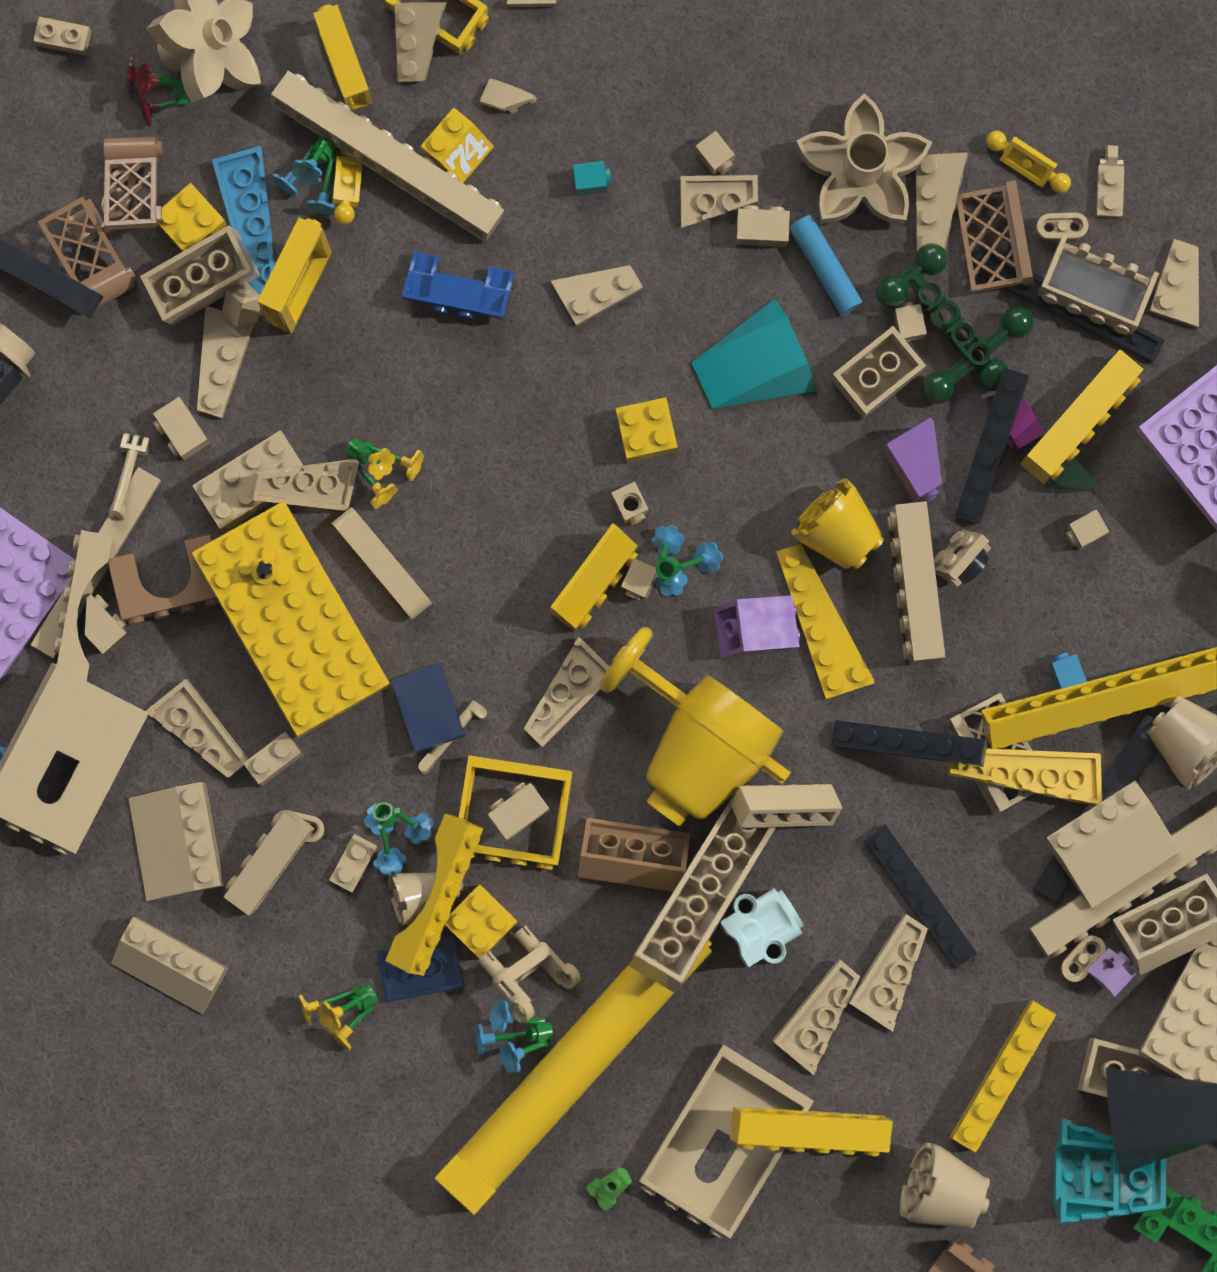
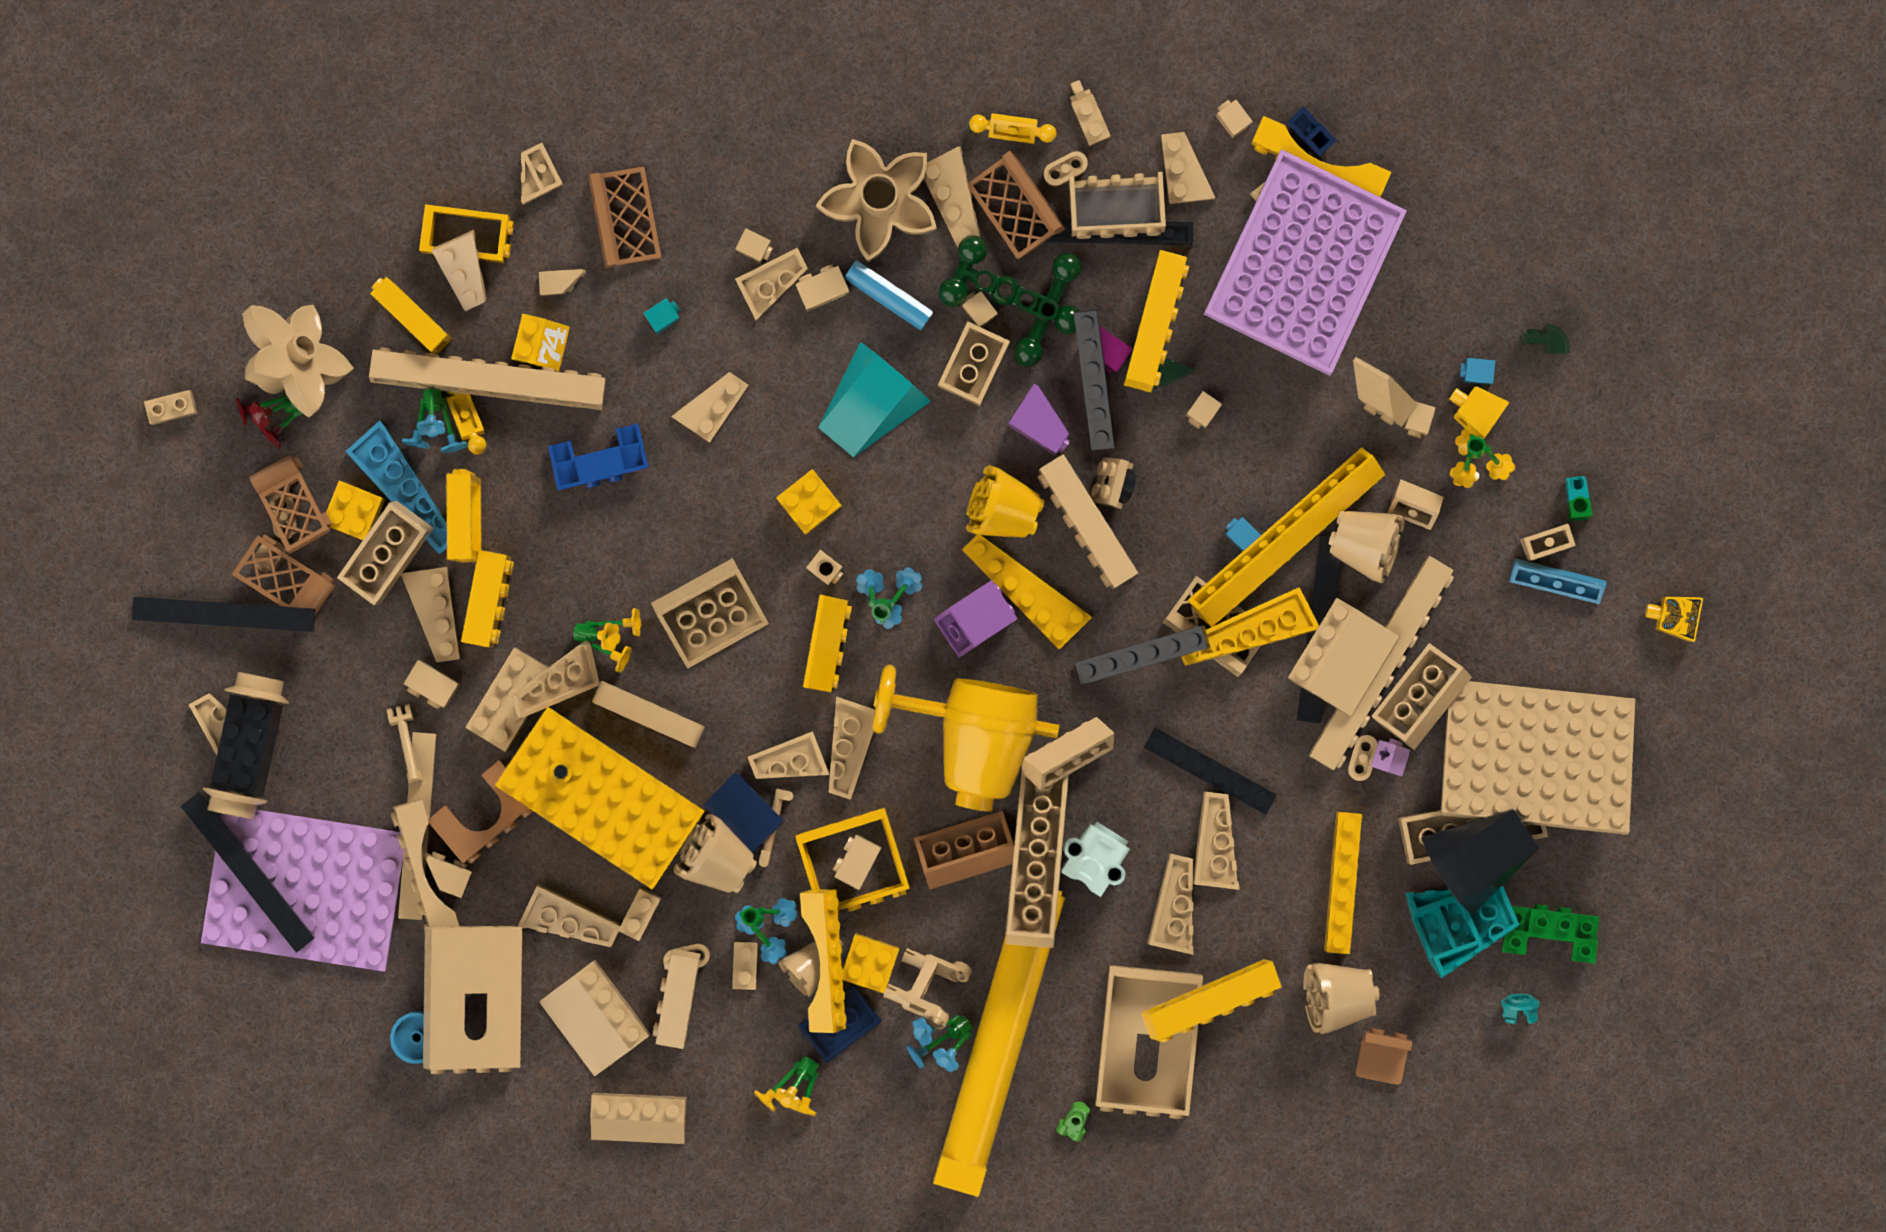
camera: 25 degrees left, 5 degrees up
(241, 305) = (431, 560): tan brick -> none
(278, 369) = (486, 599): none -> yellow brick
(377, 737) = (714, 857): none -> tan cone
(492, 493) = (709, 613): none -> tan slope
(501, 676) = (790, 759): none -> tan wing
(579, 58) = (604, 219): none -> medium nougat fence
(639, 579) = (862, 626): tan brick -> none

